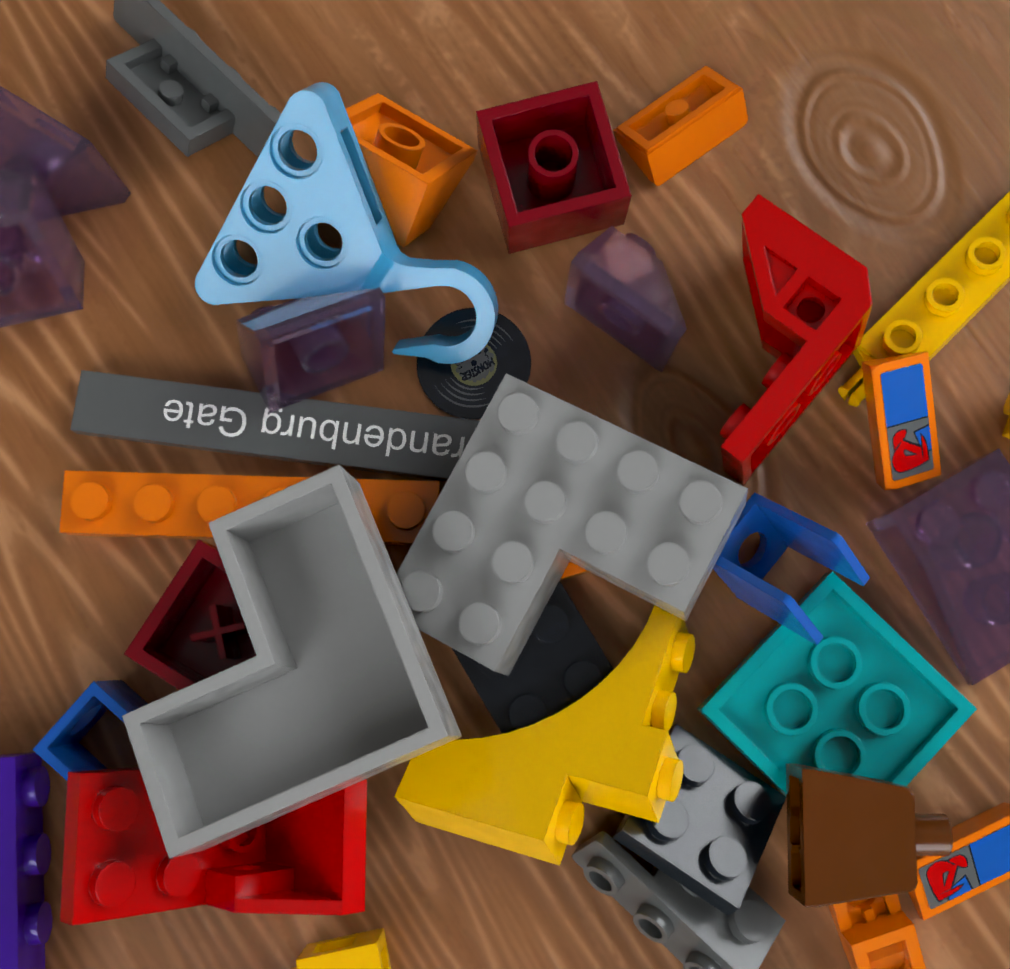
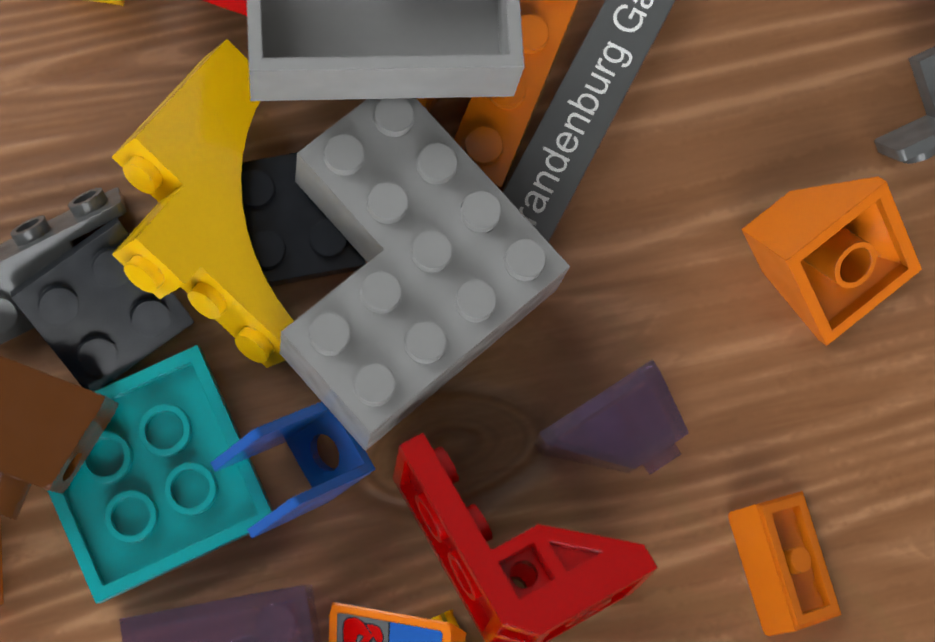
camera: 110 degrees right, 0 degrees up
(313, 344) = (672, 105): clear purple slope -> none
(342, 194) = (774, 155): dark azure piece -> none
(469, 386) = (613, 264): black sticker -> none
(553, 167) = (773, 399): dark red brick -> none

